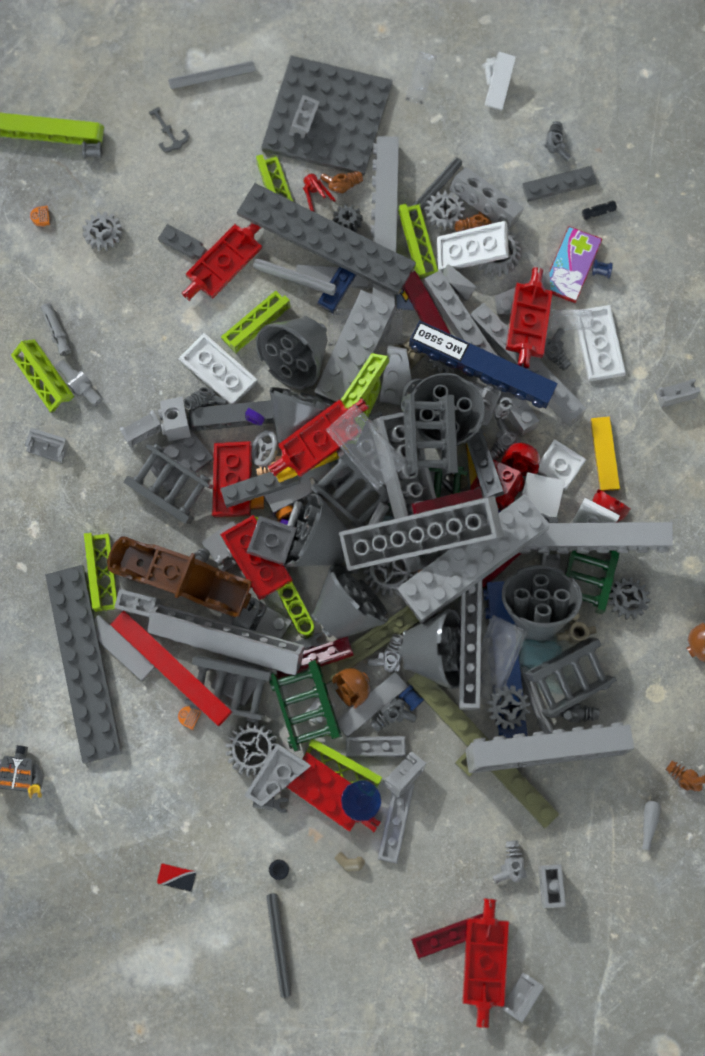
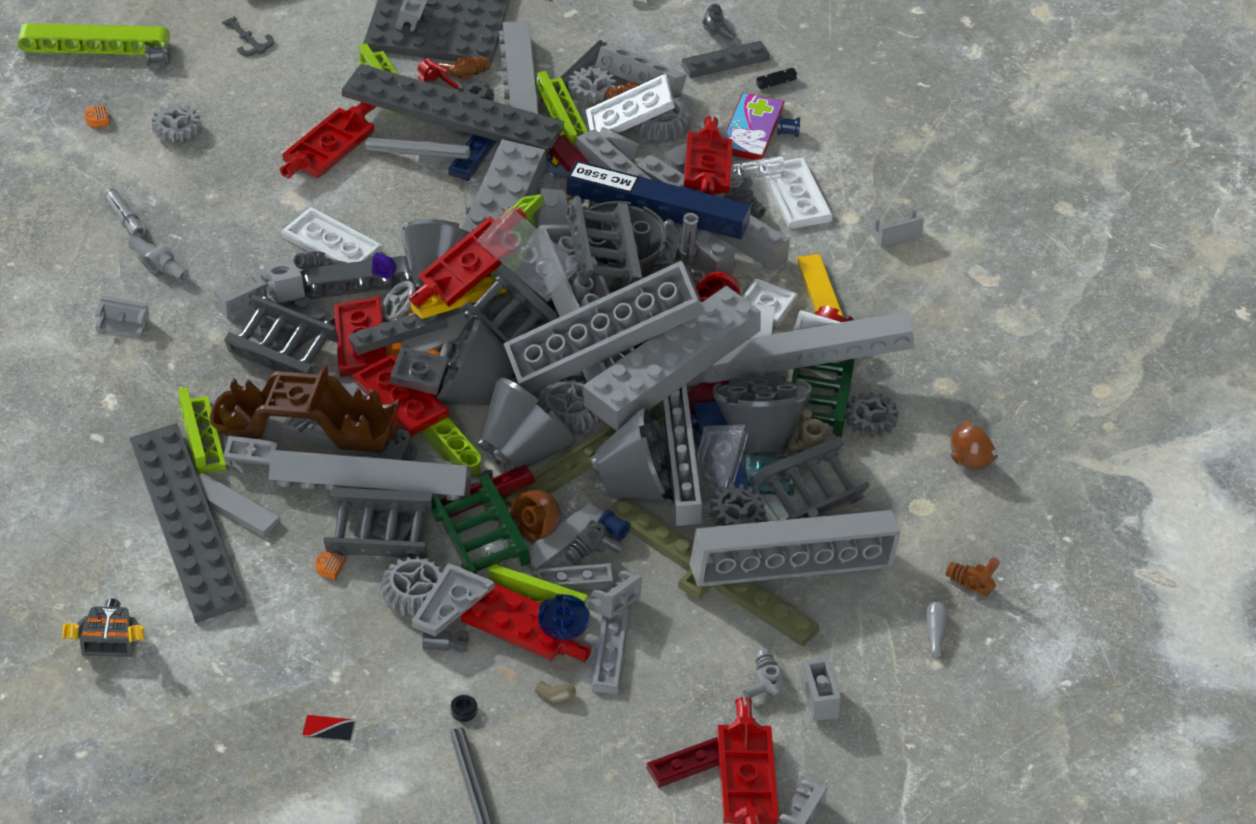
camera: 10 degrees left, 30 degrees down
(42, 370) = (115, 249): lime fence -> none
(171, 668) = (304, 509): red tile -> none
(182, 242) = (273, 130): dark grey hinge -> none
(268, 317) = (375, 194): lime fence -> none
(293, 350) = (419, 192): dark grey cone -> none
(390, 658) = (583, 487): light grey piece -> none

